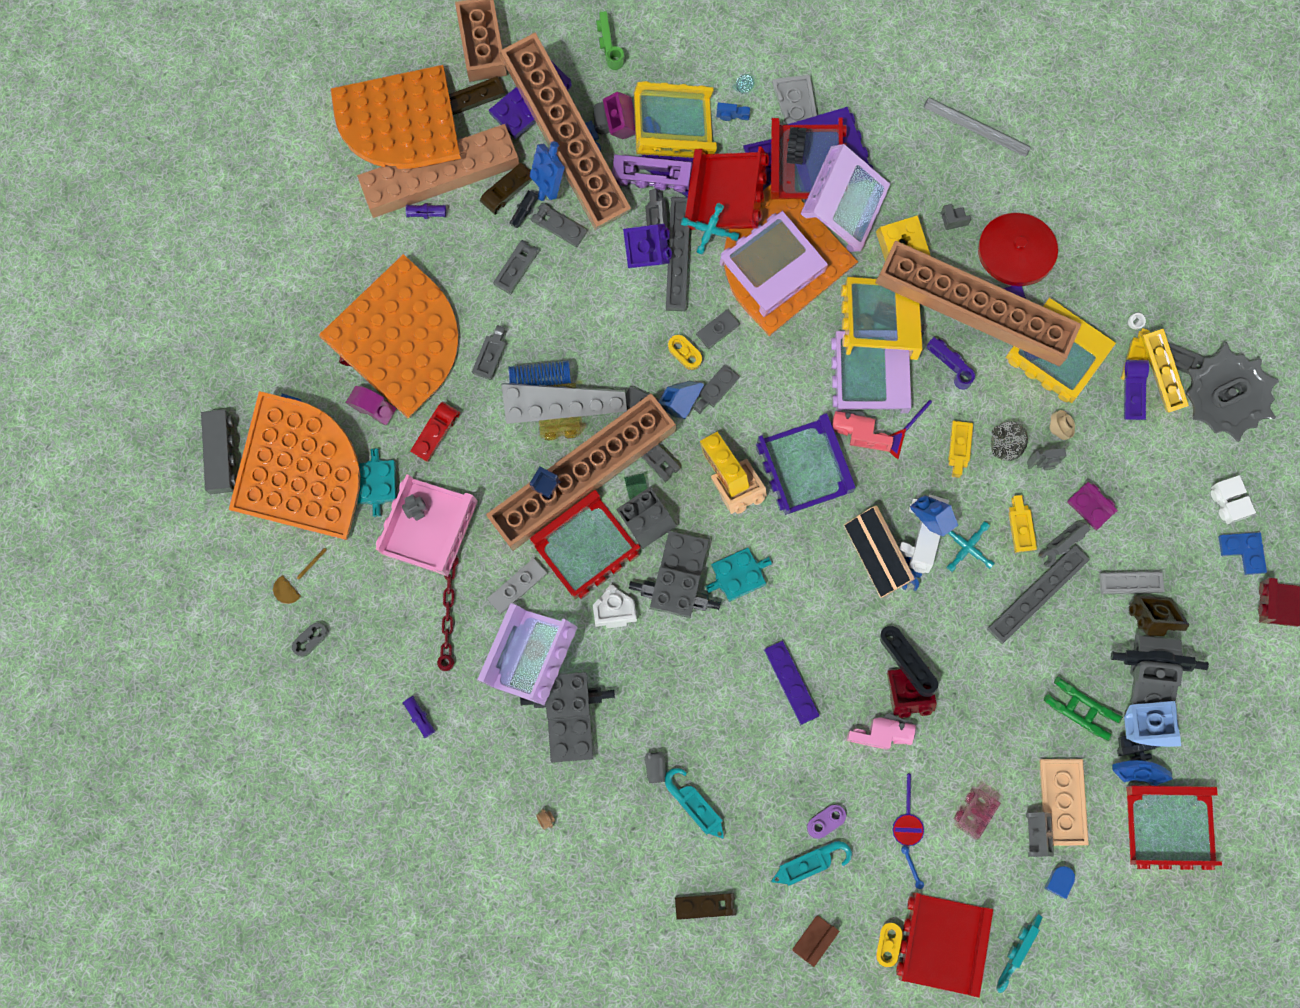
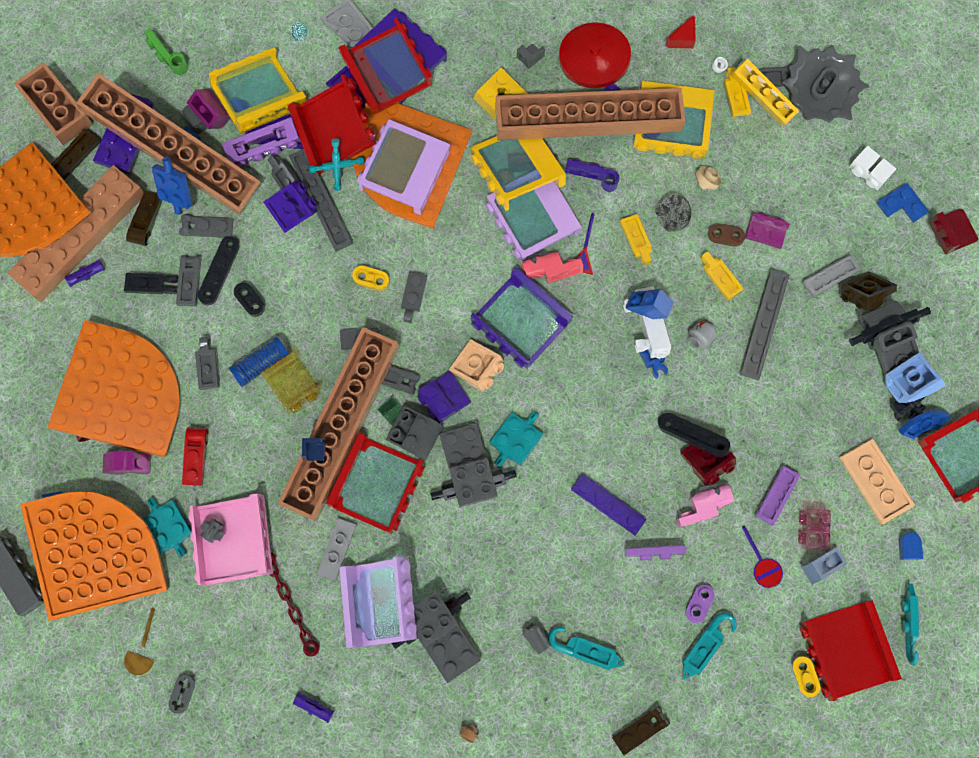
camera: 30 degrees left, 0 degrees up
(478, 251) = (149, 283): none -> black hinge
(523, 208) = (168, 228): black axle -> none
(545, 402) = (275, 382): light grey wing -> none
(548, 272) = (218, 270): none -> black plate
(561, 314) = (249, 300): none -> black plate
(614, 609) = (429, 524): white plate -> none
(680, 398) = (388, 318): slope -> none
(691, 499) = (443, 397): none -> dark purple plate
(717, 329) = (387, 245): dark grey plate -> none
(724, 464) = (455, 353): yellow brick -> none
(730, 111) = (299, 60): blue plate -> none
(796, 145) = (371, 59): black tyre -> none
(815, 941) = (746, 707): copper panel -> none
(819, 755) = (663, 552): none -> medium lavender plate
(846, 196) = (434, 80): panel -> none
(879, 551) = (620, 358): black tile -> none
(919, 884) = (801, 612): blue hinge -> none
(958, 762) = (777, 495): none -> medium lavender plate
(966, 851) = (824, 565): none -> sand blue plate
(968, 547) = (689, 316): teal piece -> none
(971, 572) = (702, 335): none -> light grey head
(1040, 834) = (874, 518): dark grey hinge -> none
(1048, 459) = (712, 212): dark grey plate -> none
(1049, 490) = (726, 236): none -> reddish brown plate
(1064, 541) = (761, 271): dark grey plate -> none
(1095, 708) = (857, 390): green piece -> none
(1116, 275) = (684, 36): none -> red slope
(1135, 389) = (749, 120): dark purple plate -> none

